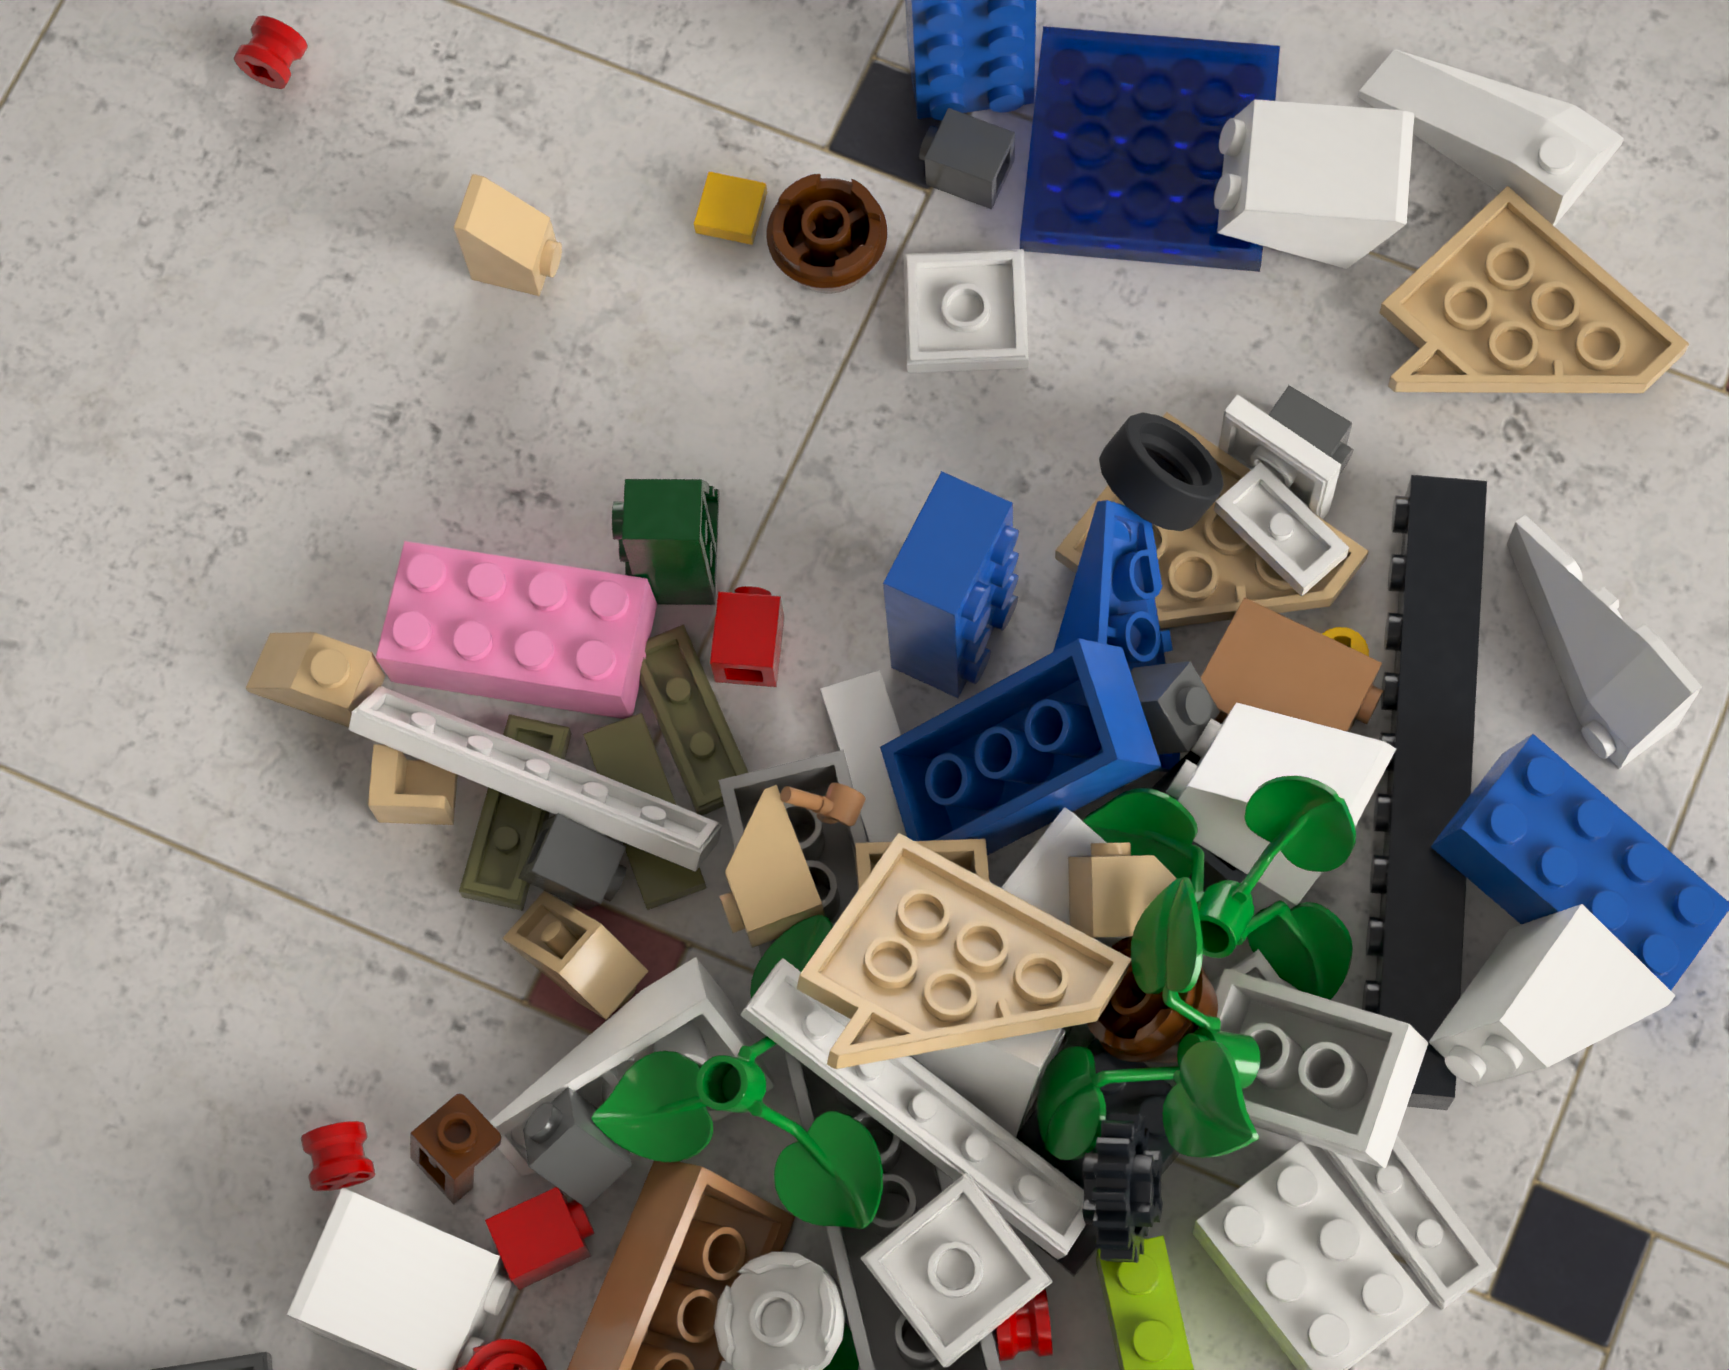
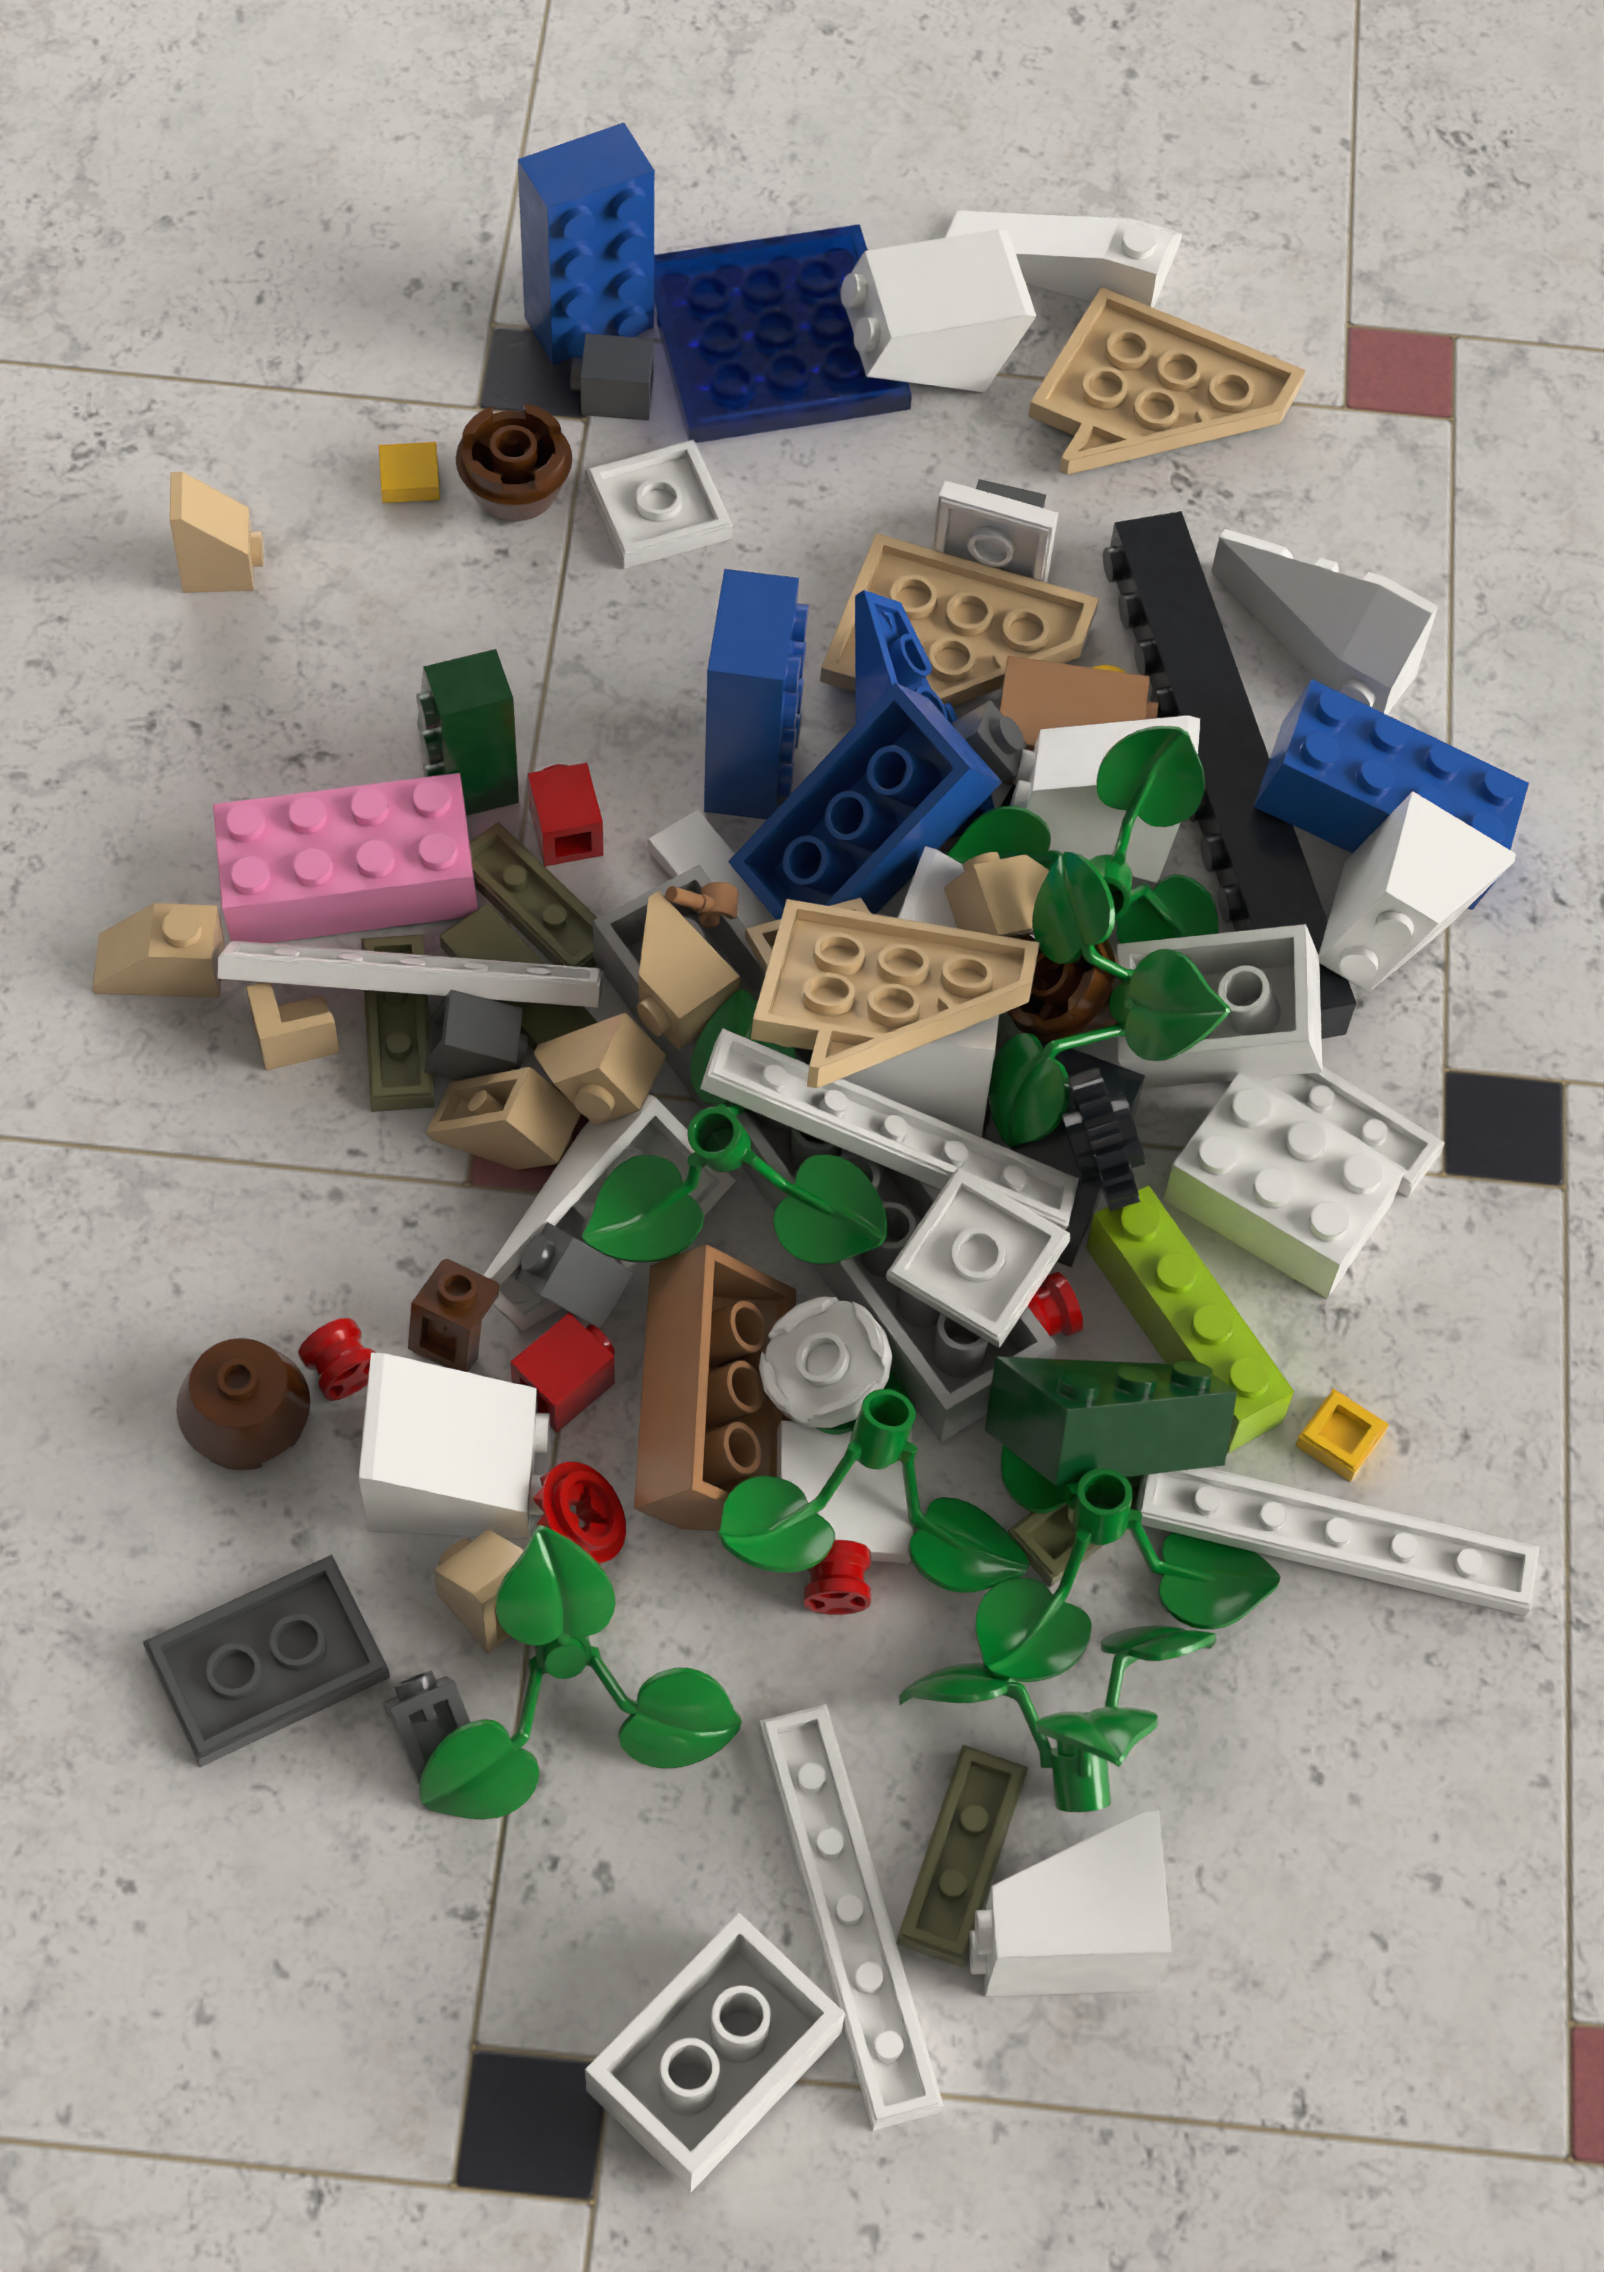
camera: 30 degrees left, 10 degrees down
(236, 1172) = (242, 1404): none -> reddish brown cone
(670, 944) = (603, 1067): none -> tan slope
(1161, 472) = (898, 565): black tyre -> none
(1281, 529) = (1018, 593): white plate -> none

